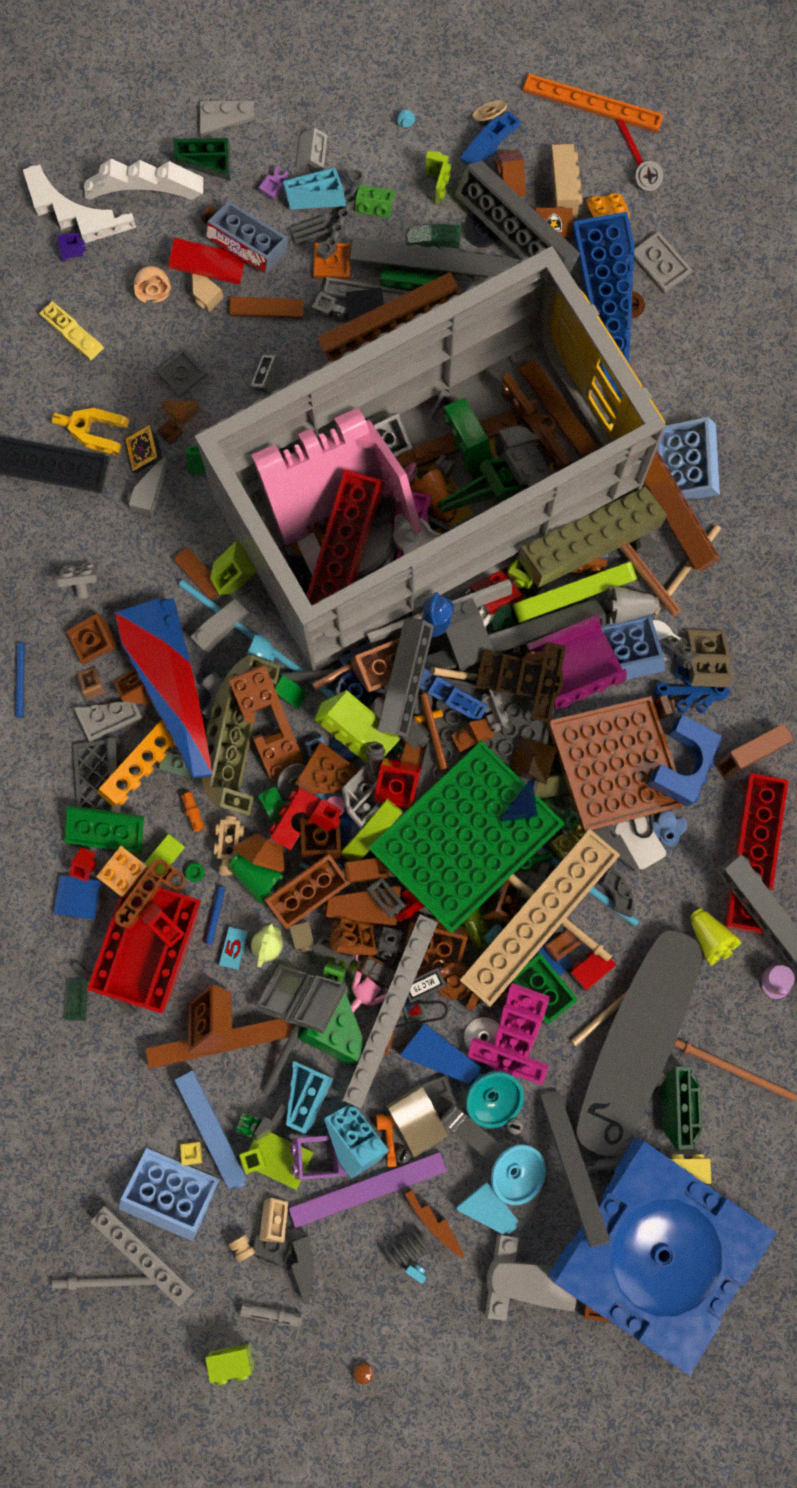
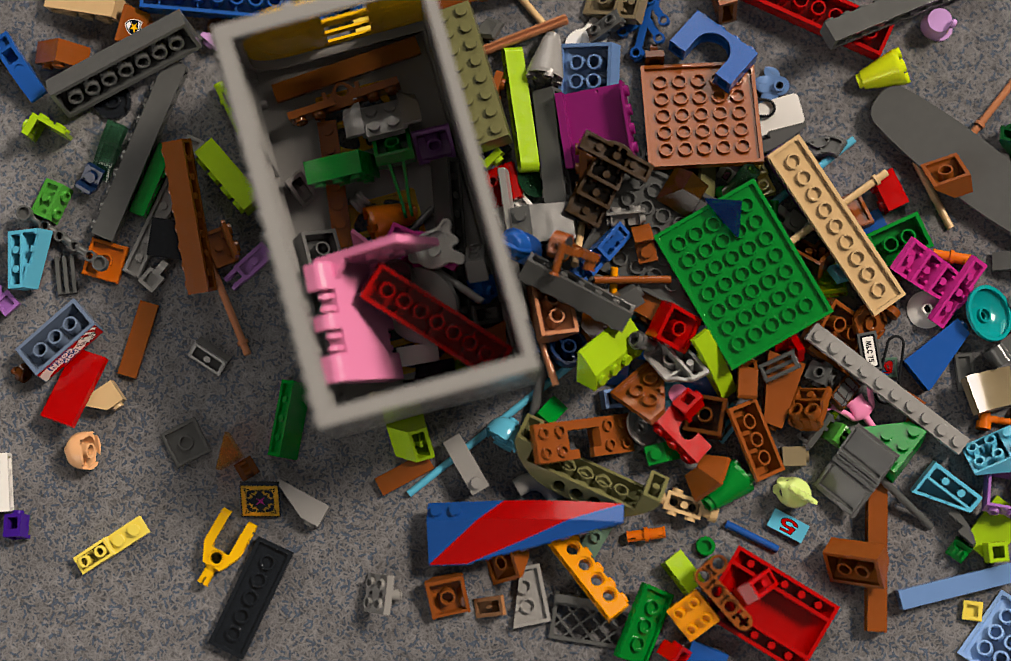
camera: 80 degrees left, 5 degrees up
(403, 228) = (90, 179): none -> dark blue bracket
(446, 653) = (562, 246): none -> dark orange piece
(543, 1047) = (952, 256): none -> orange pin
(622, 1022) = (948, 175): none -> dark orange slope

